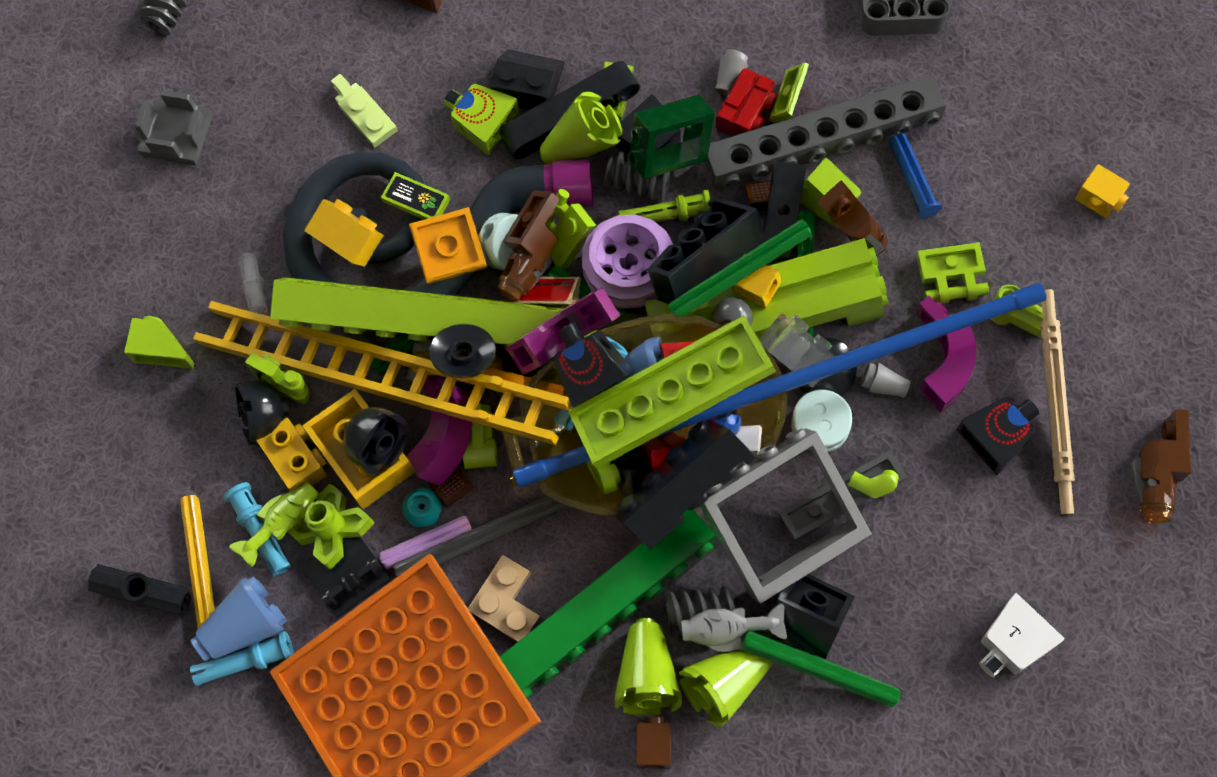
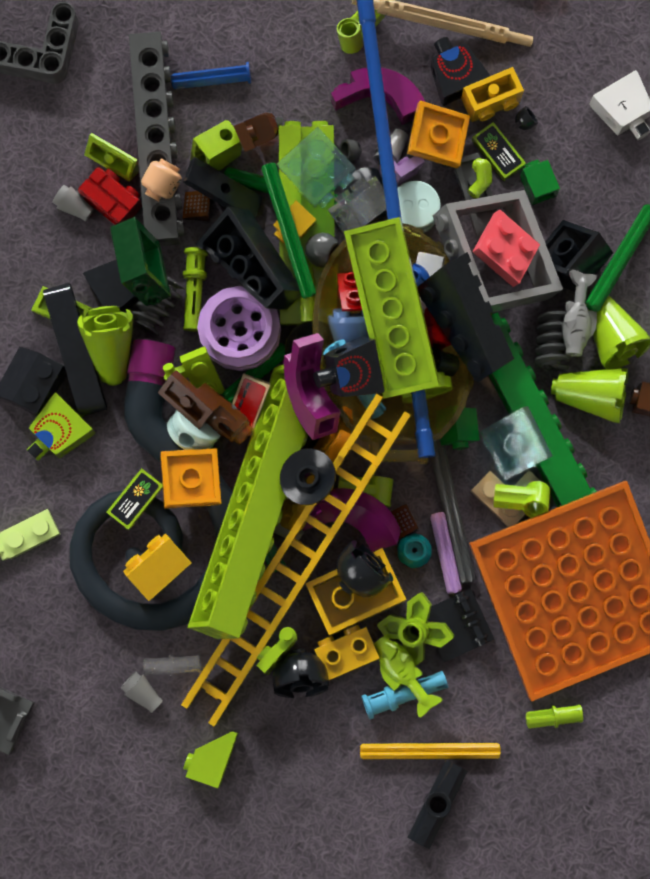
camera: 85 degrees left, 10 degrees up
(219, 259) = (140, 691): none -> light grey cone
(239, 621) = (487, 718): medium blue cone -> none
(257, 704) = (554, 716): none -> lime axle
(258, 656) = (514, 709): medium azure pin -> none
(498, 615) = (531, 499): none -> lime piece
(561, 586) = (516, 443): none -> clear light blue plate
(568, 525) = (463, 431): none -> green brick
(772, 140) = (161, 180): none -> light nougat head
(785, 517) = (506, 248): none -> coral plate
(821, 285) = (317, 168): none -> clear light blue plate
(860, 398) = (406, 168): none -> lavender bracket
(869, 335) = (350, 149): none -> dark grey hinge
(891, 555) = (539, 181): none -> green brick
(913, 423) = (438, 134): none -> light orange tile
(917, 503) = (498, 151): none -> tile
(953, 263) = (300, 70): lime plate -> none
(967, 526) = (527, 118): none -> black hinge
(981, 476) = (492, 95): none -> yellow brick

